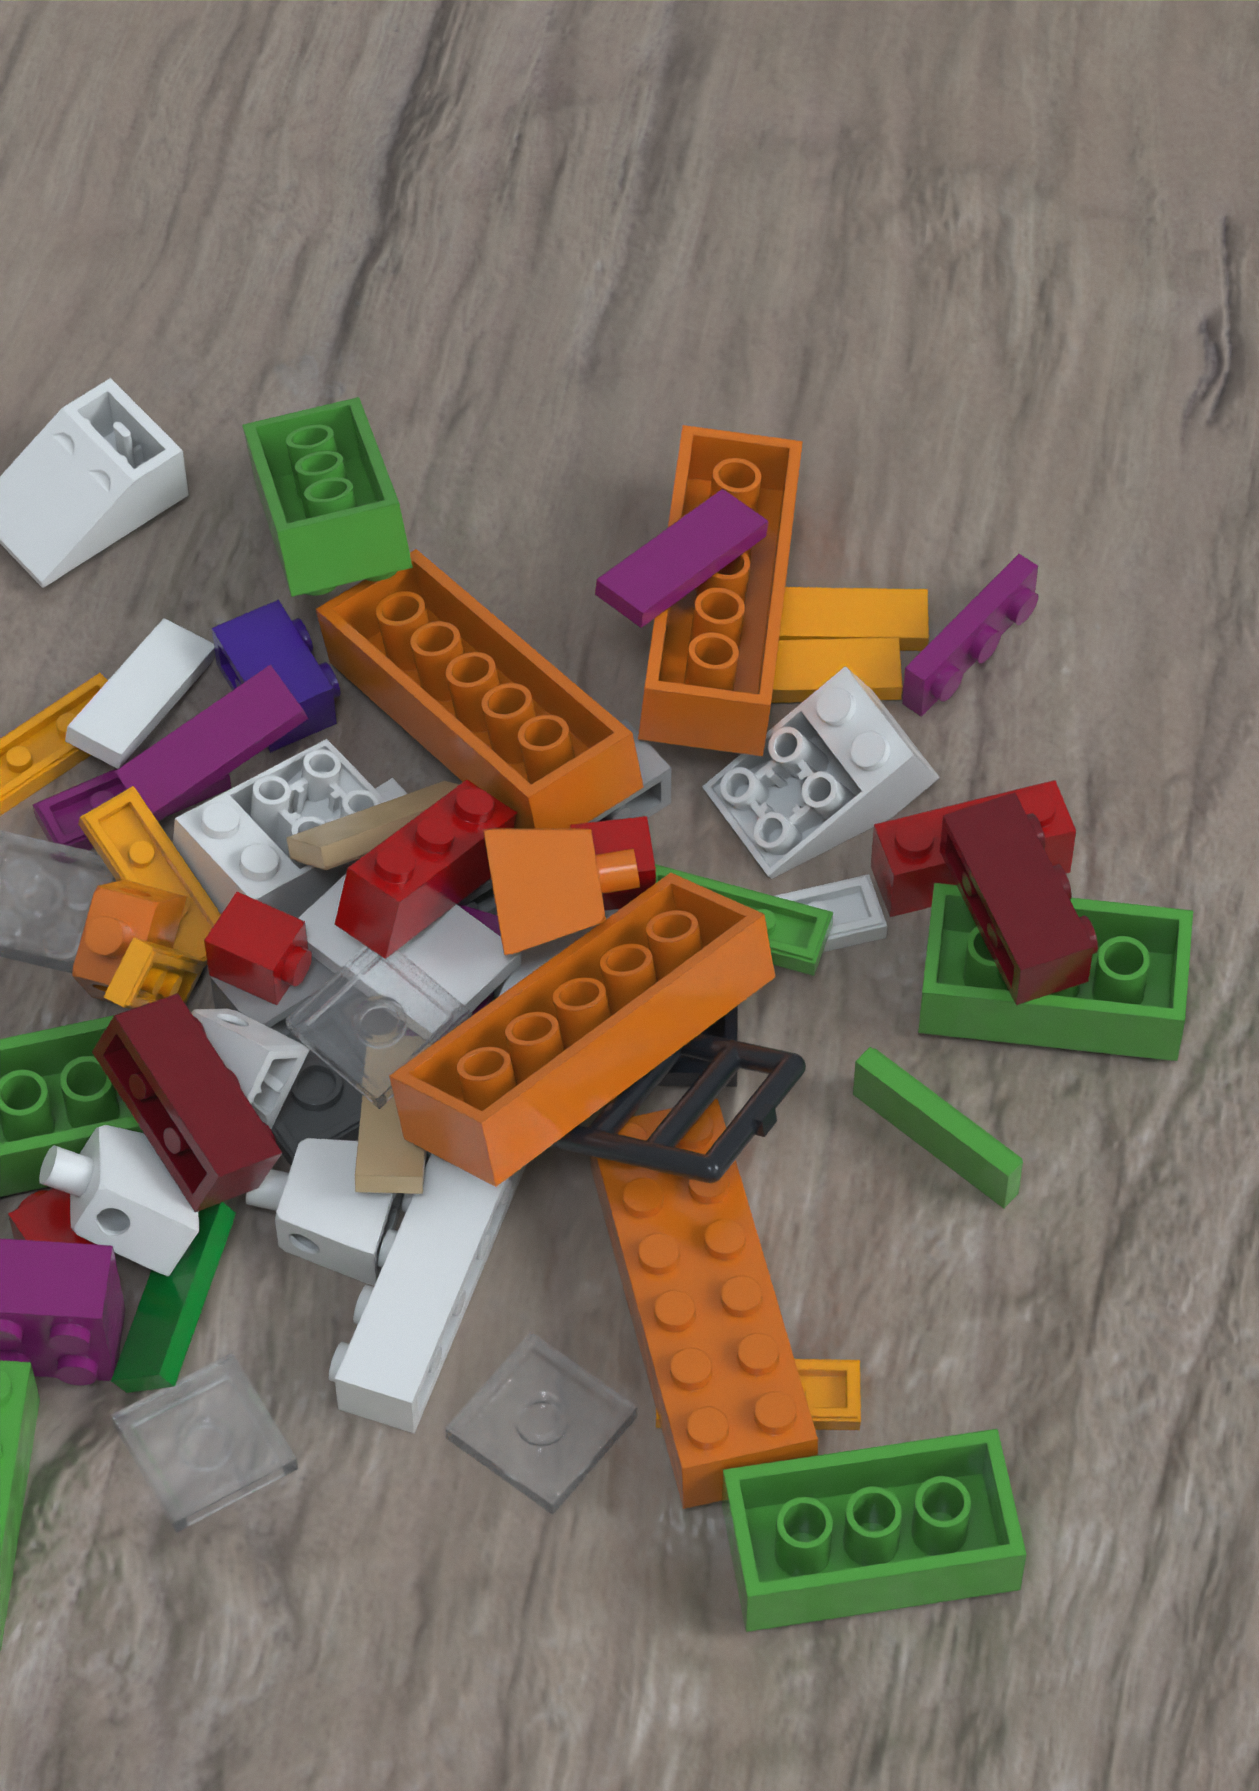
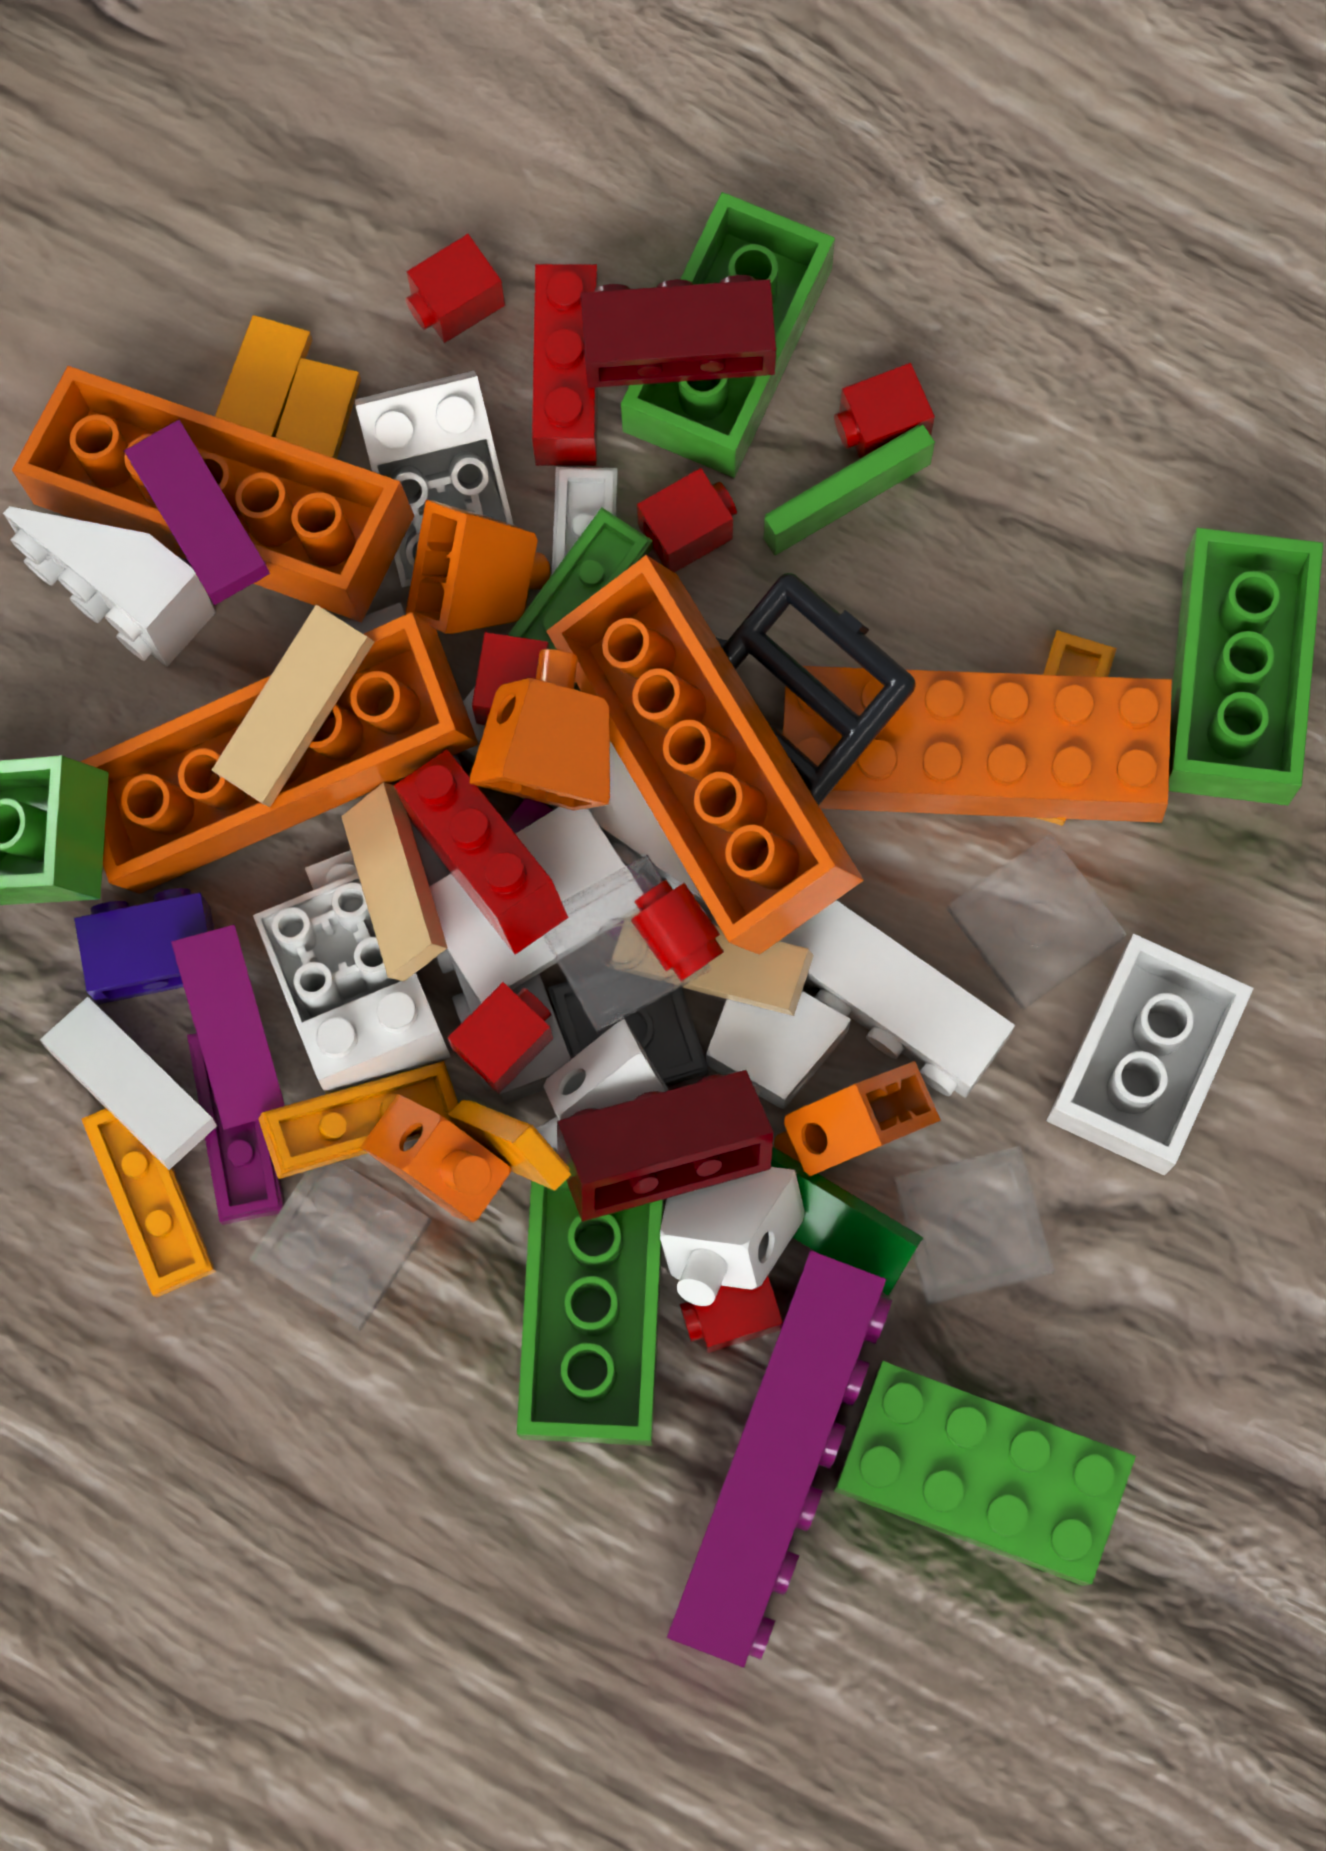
camera: 70 degrees left, 20 degrees up
(262, 1272) = (846, 1126): none -> orange torso
(393, 1040) = (676, 929): none -> red brick
(420, 1541) = (1150, 1055): none -> white brick
(513, 673) = (293, 706): none -> tan tile
(606, 530) = (117, 576): none -> white slope
(723, 814) = (472, 570): none -> orange torso
(851, 994) = (687, 519): none -> red brick
(971, 636) = (325, 290): magenta plate -> none
(1016, 738) = (454, 289): none -> red brick
(1038, 1133) = (882, 409): none -> red brick

